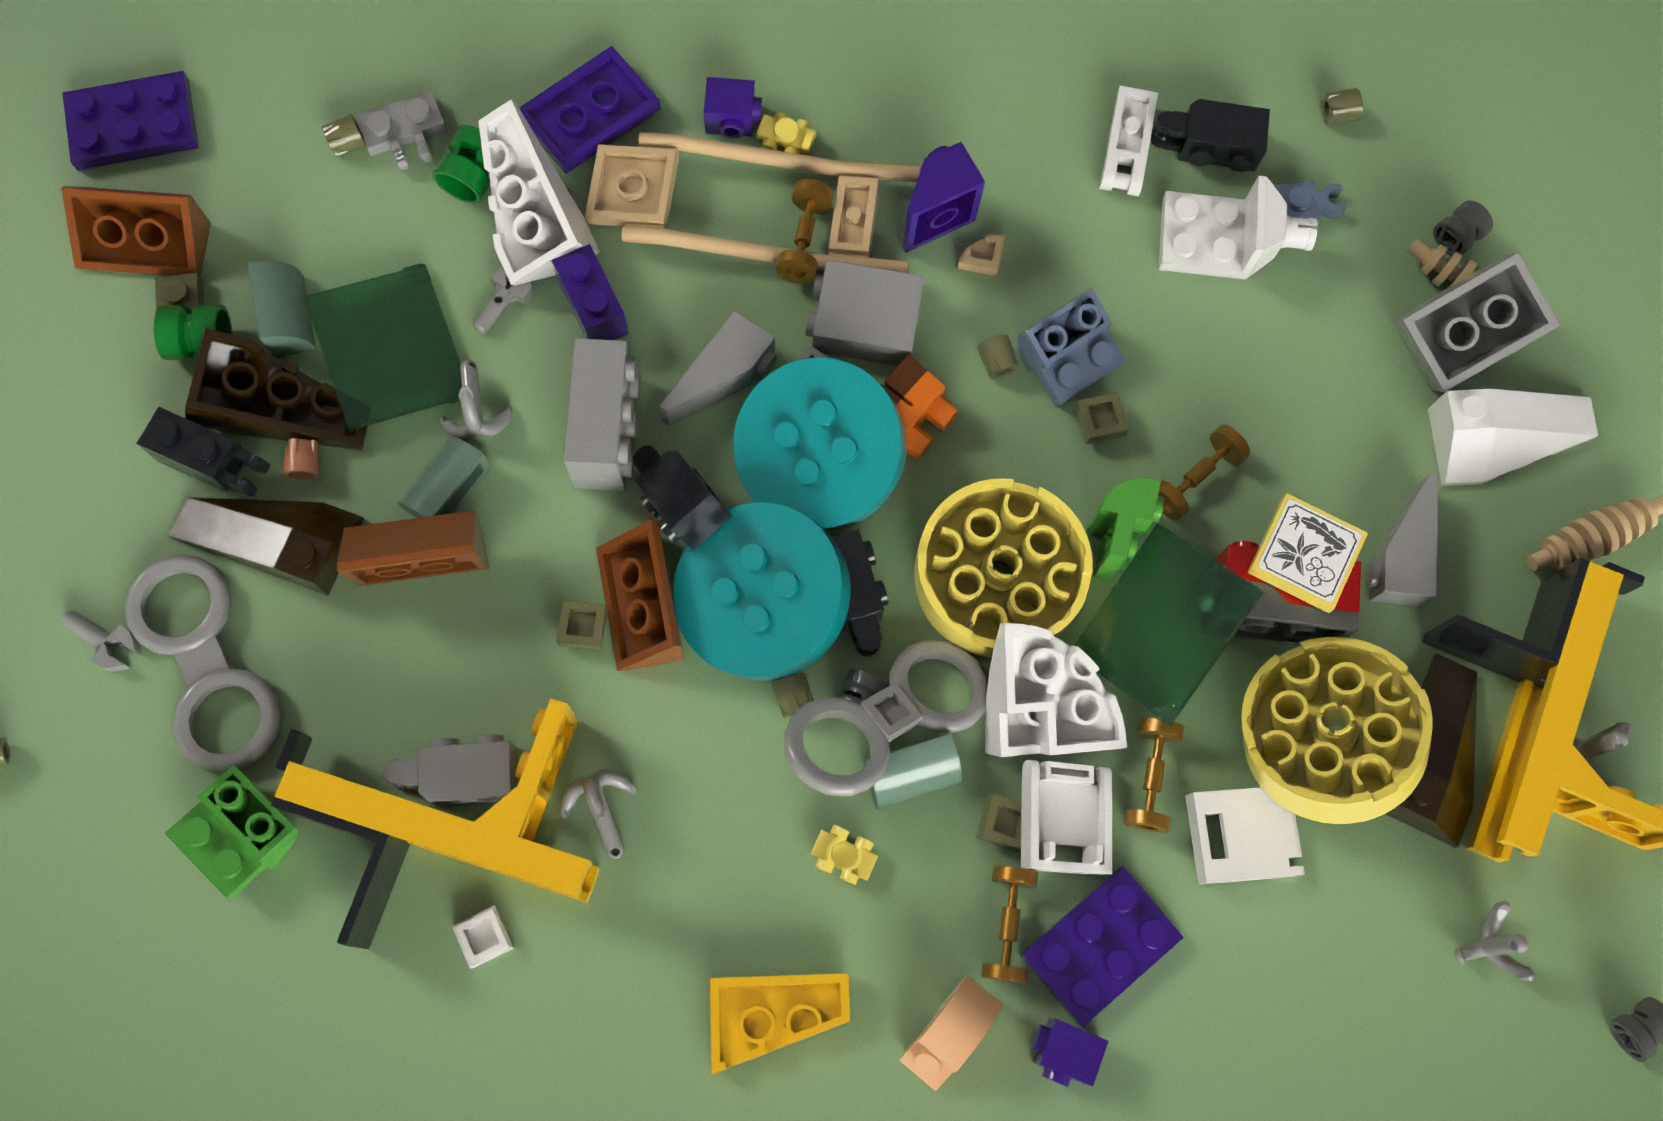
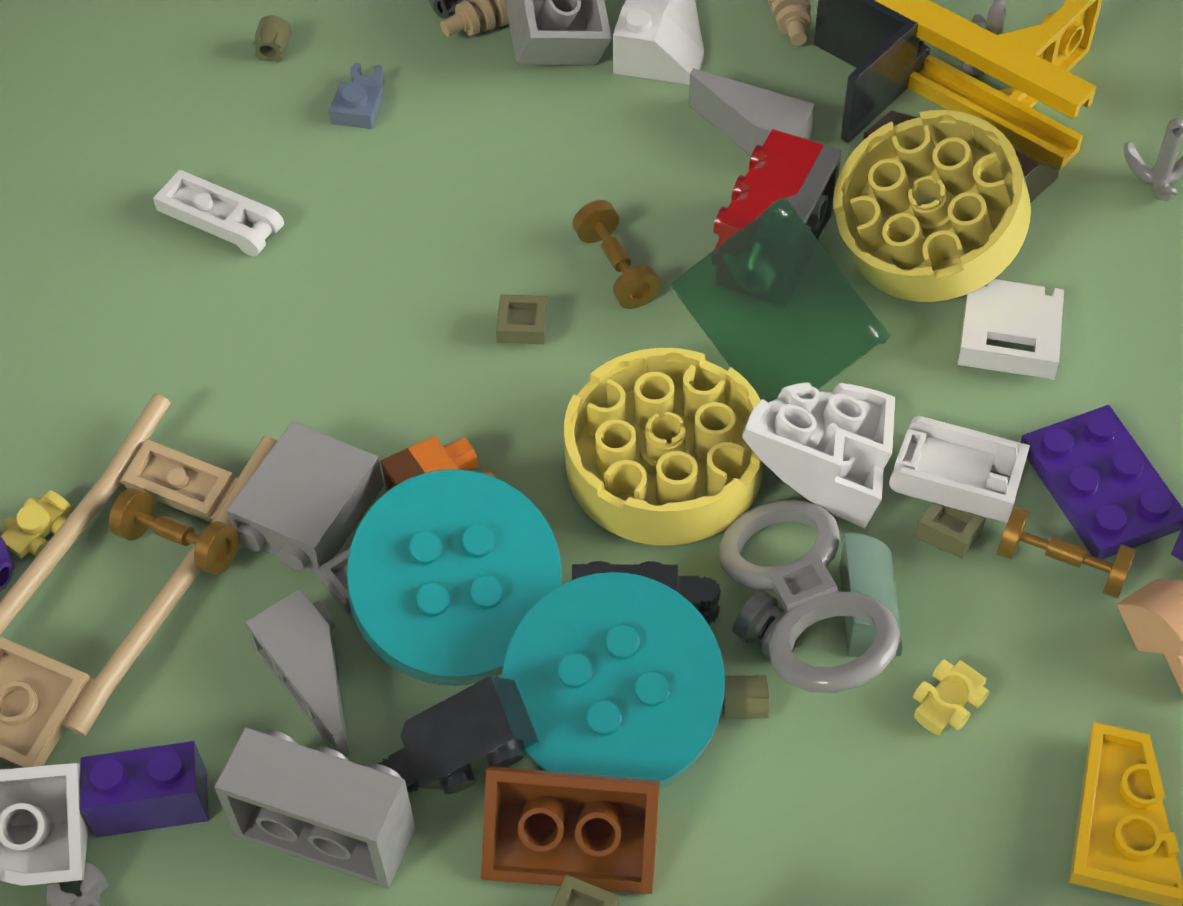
camera: 65 degrees left, 20 degrees down
(943, 197) = (201, 378): dark purple slope -> none
(983, 255) = (284, 376): tan tile -> none
(998, 356) = (412, 391): olive hose -> none
(1071, 347) = (433, 320): sand blue brick -> none
(1121, 522) = (655, 316): bright green brick -> none
(1160, 732) = (886, 361): pearl gold wheel -> none
(1215, 134) = (252, 136): black hinge -> none
(1227, 233) = (364, 161): white plate -> none
(1307, 553) = (752, 161): tile -> none

